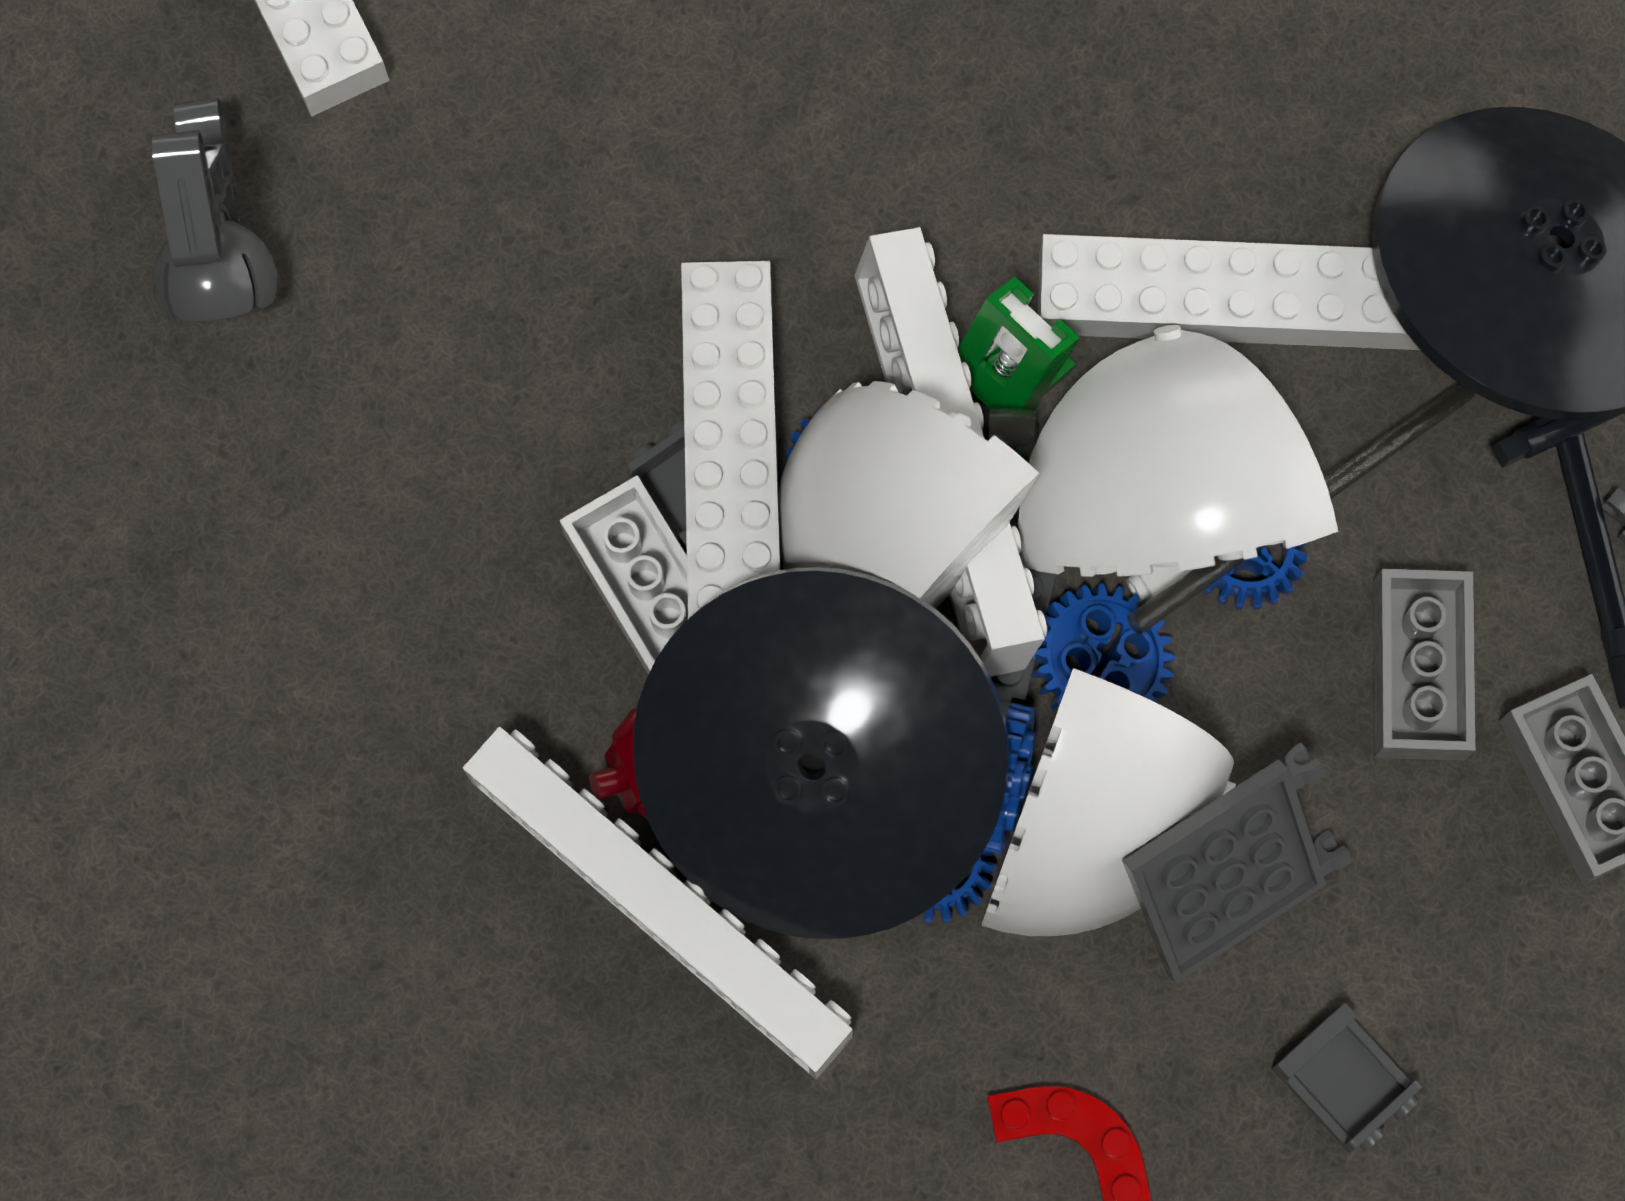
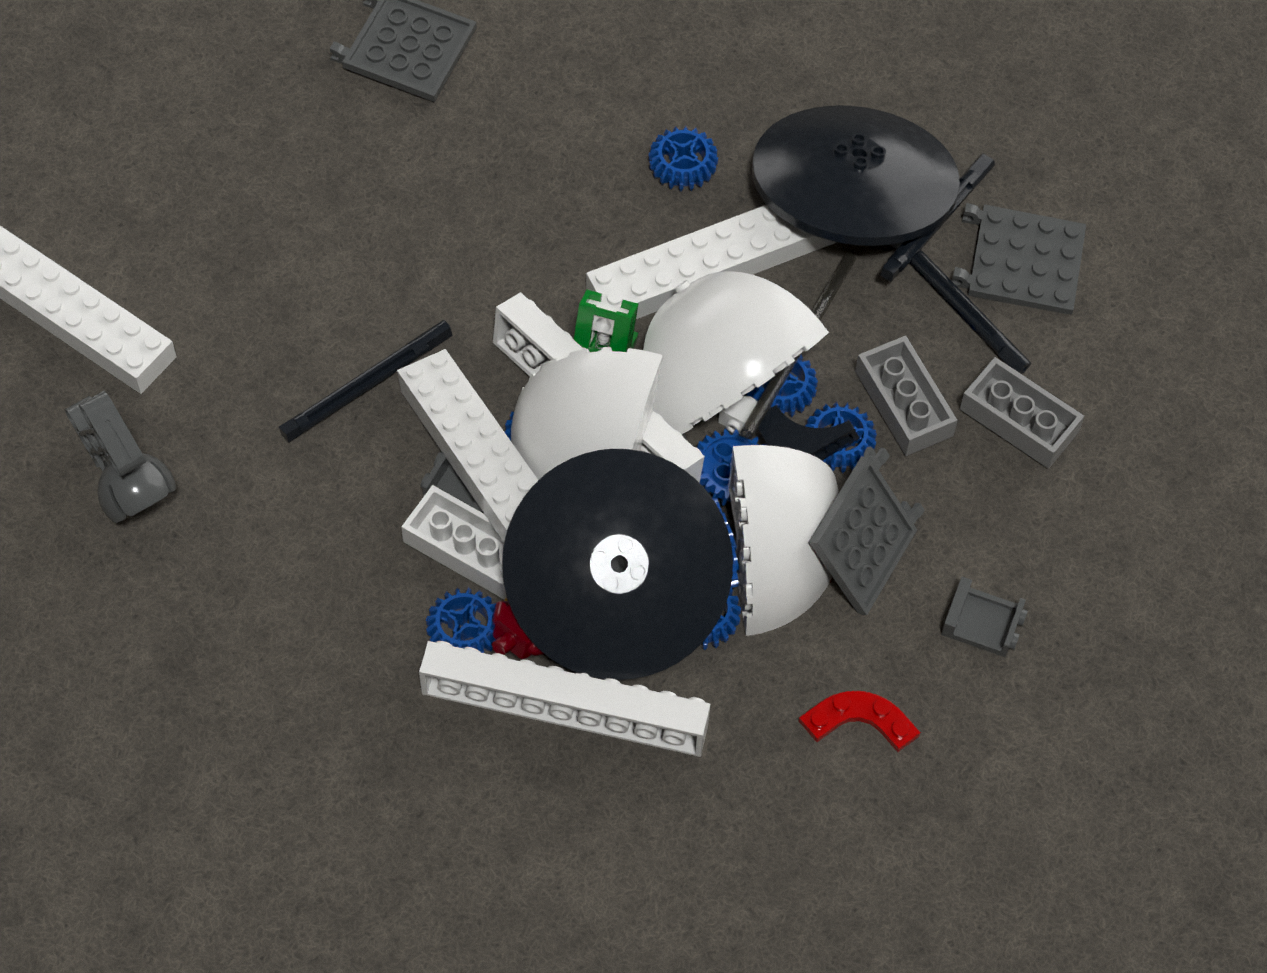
camera: 30 degrees left, 15 degrees down
(564, 723) = (445, 613): none -> blue gear
(638, 250) = (342, 396): none -> black piece
(1205, 673) = (819, 442): none -> black arch
(1287, 72) = (684, 165): none -> blue gear
(1305, 689) = (864, 429): none -> blue gear

